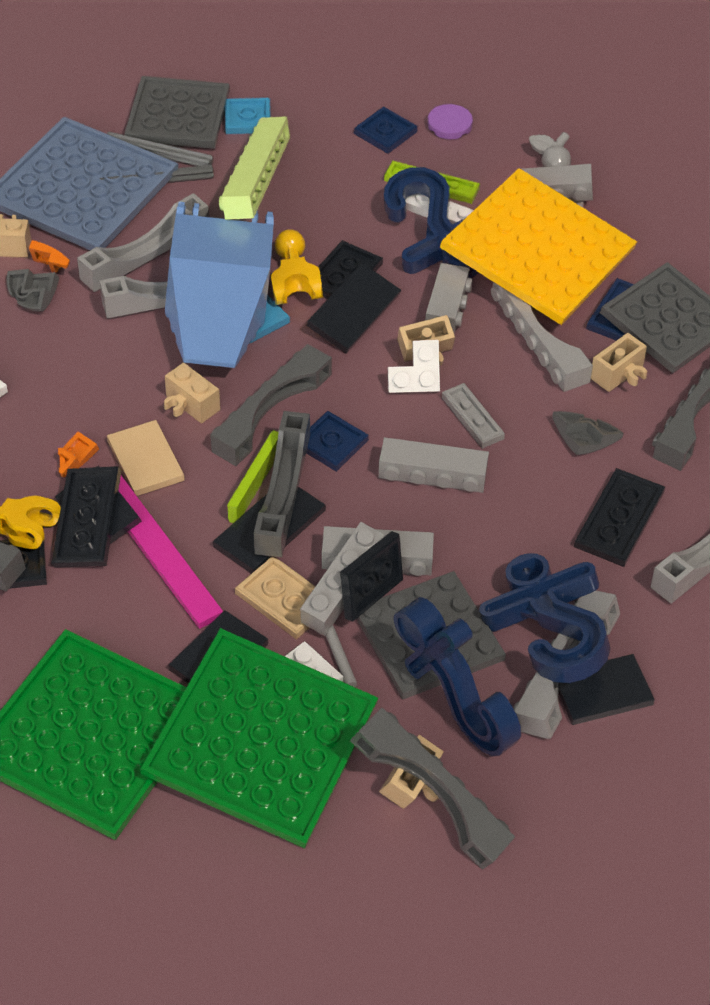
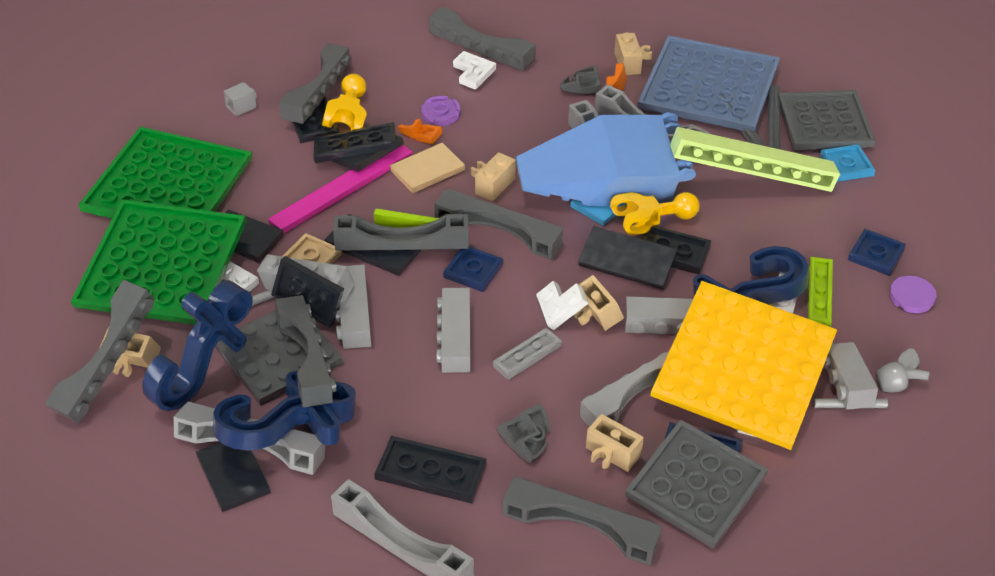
camera: 80 degrees right, 5 degrees down
(37, 431) = (440, 110): none -> medium lavender tile
(521, 575) = (314, 377): none -> dark grey arch

